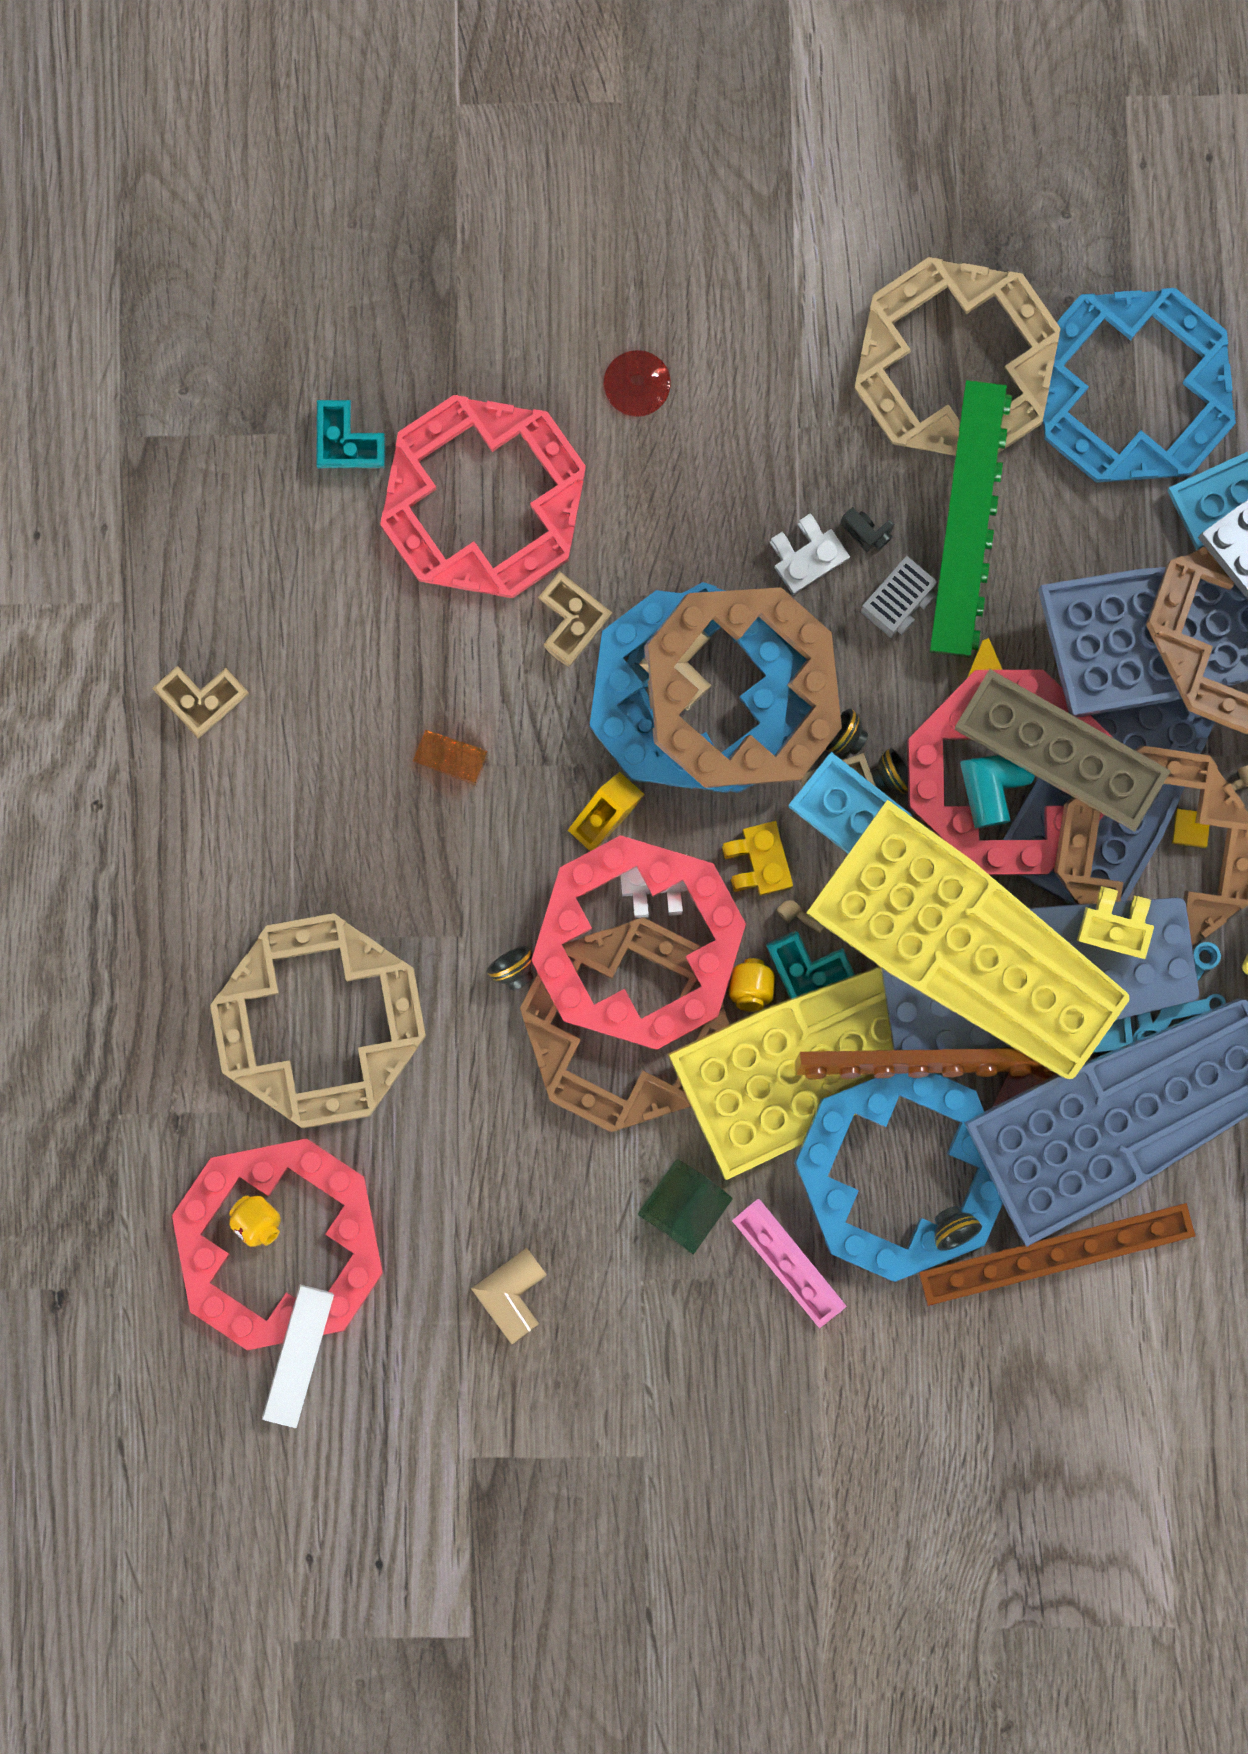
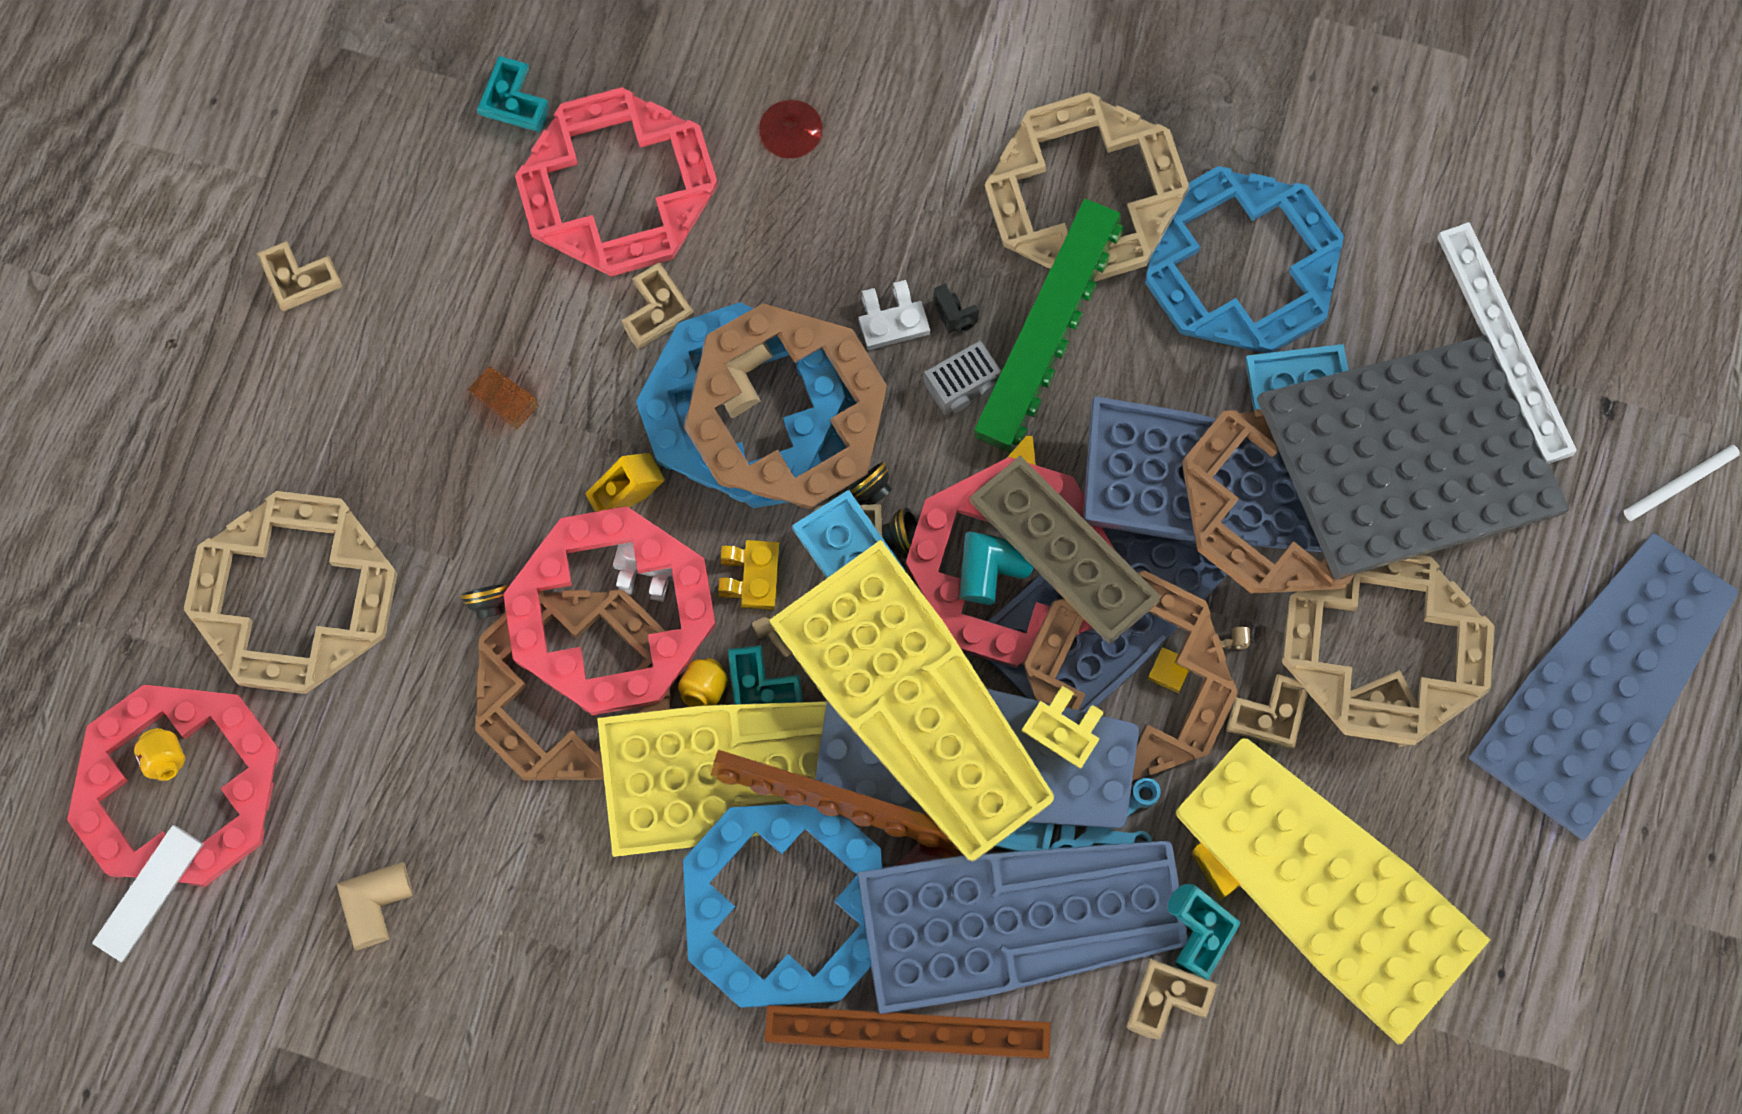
camera: 20 degrees right, 10 degrees down
(685, 1206) = (568, 872): clear green slope -> none
(789, 1263) = (645, 957): bright pink plate -> none
(955, 1228) = (814, 972): pearl dark grey piece -> none

